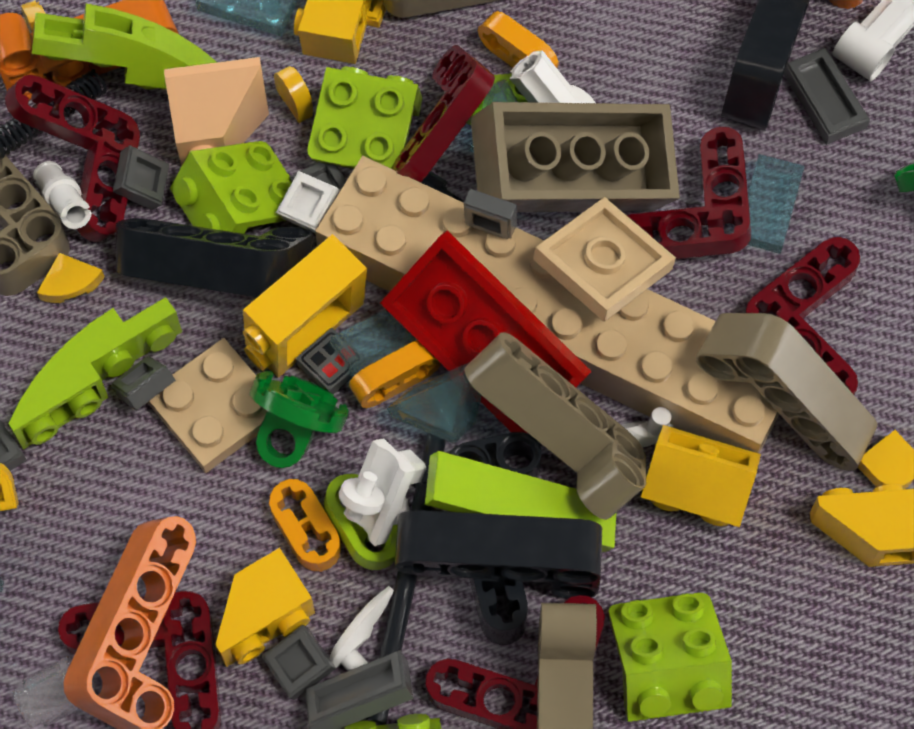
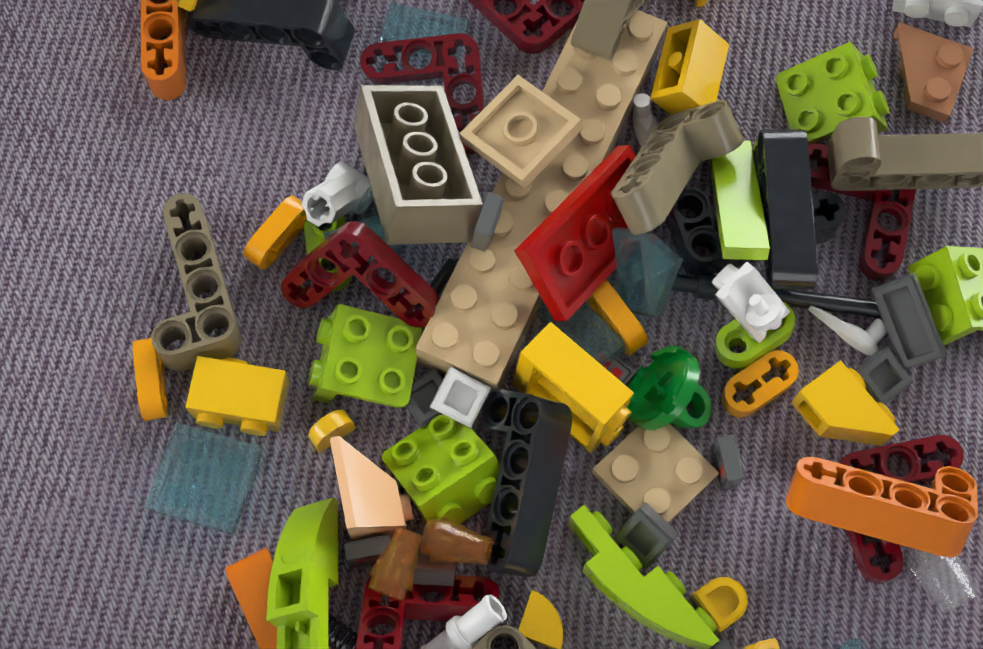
camera: 95 degrees left, 5 degrees up
(64, 459) = (722, 600): none -> yellow tile
(129, 127) = (396, 566): none -> clear orange cone
(150, 184) = (452, 542): none -> clear orange cone
(160, 121) = (365, 551): none -> dark grey tile
(212, 473) = (727, 462): none -> dark grey tile

